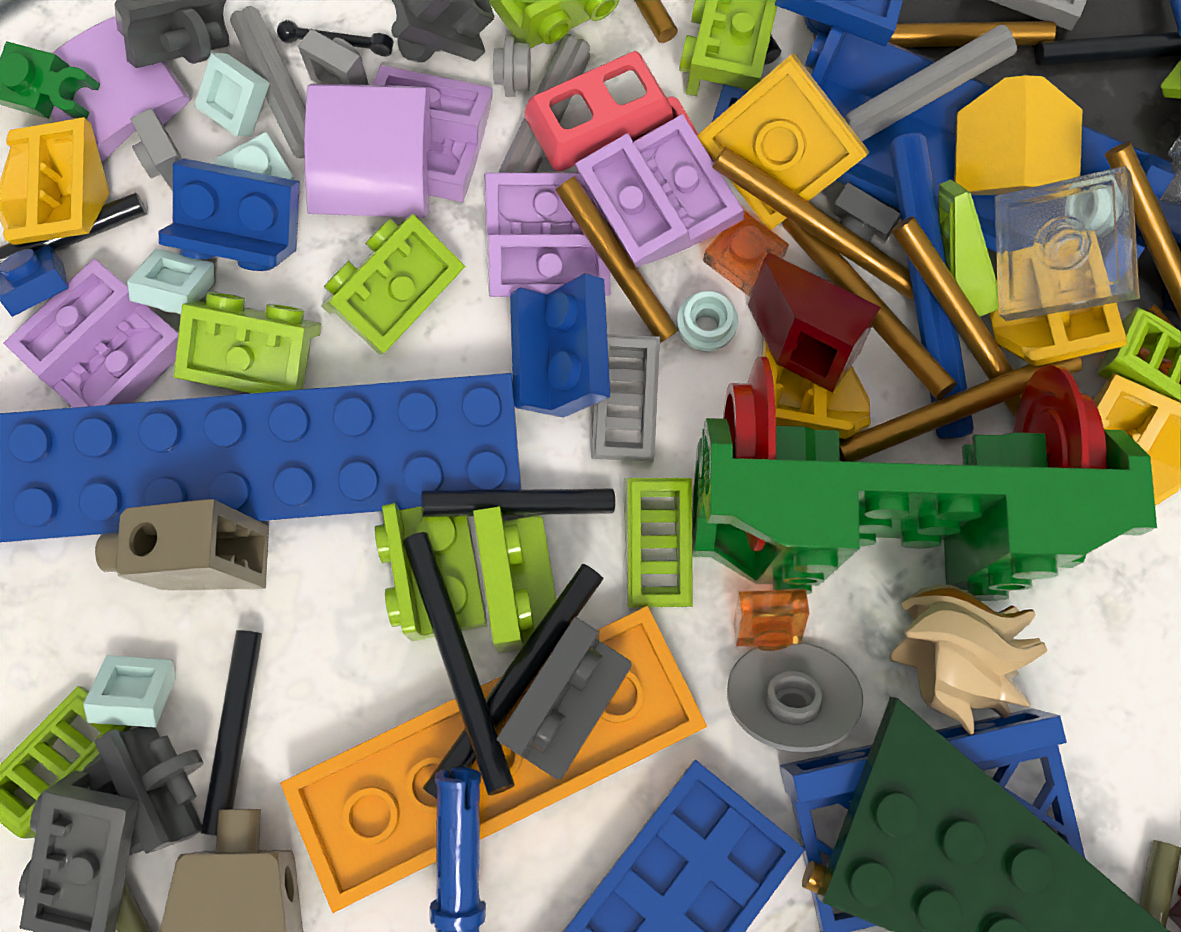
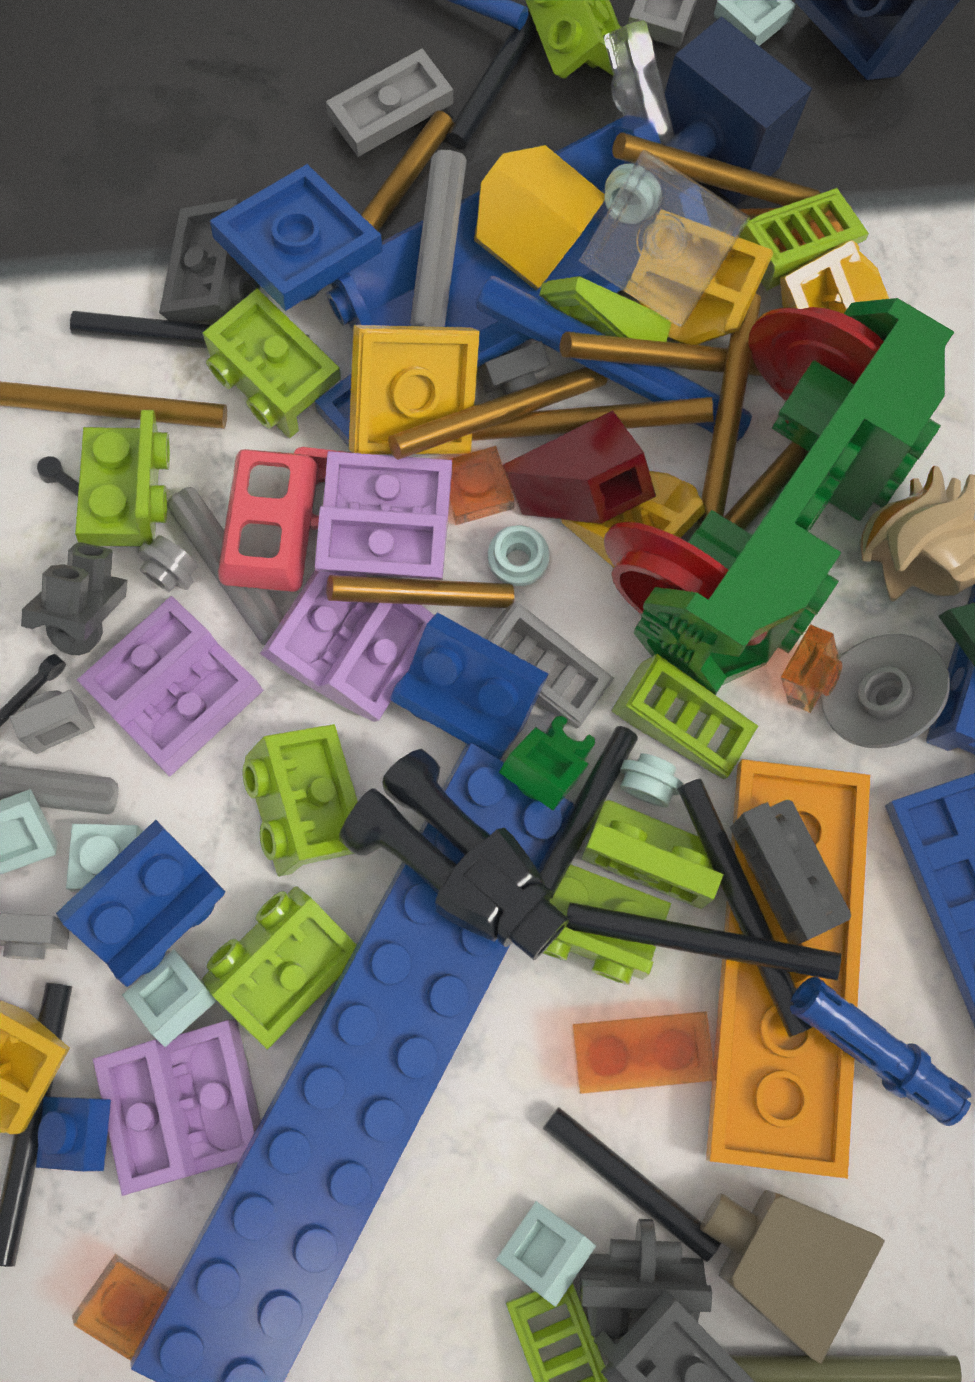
camera: 60 degrees left, 0 degrees up
(187, 547) = (461, 1109): dark tan torso -> none
(342, 673) = (642, 1052): none -> clear orange plate
(367, 150) = (165, 740): lavender slope -> none
(391, 453) = (490, 889): none -> black piece
(531, 445) = (548, 763): none -> green plate
(580, 540) = (650, 779): none -> light aqua plate

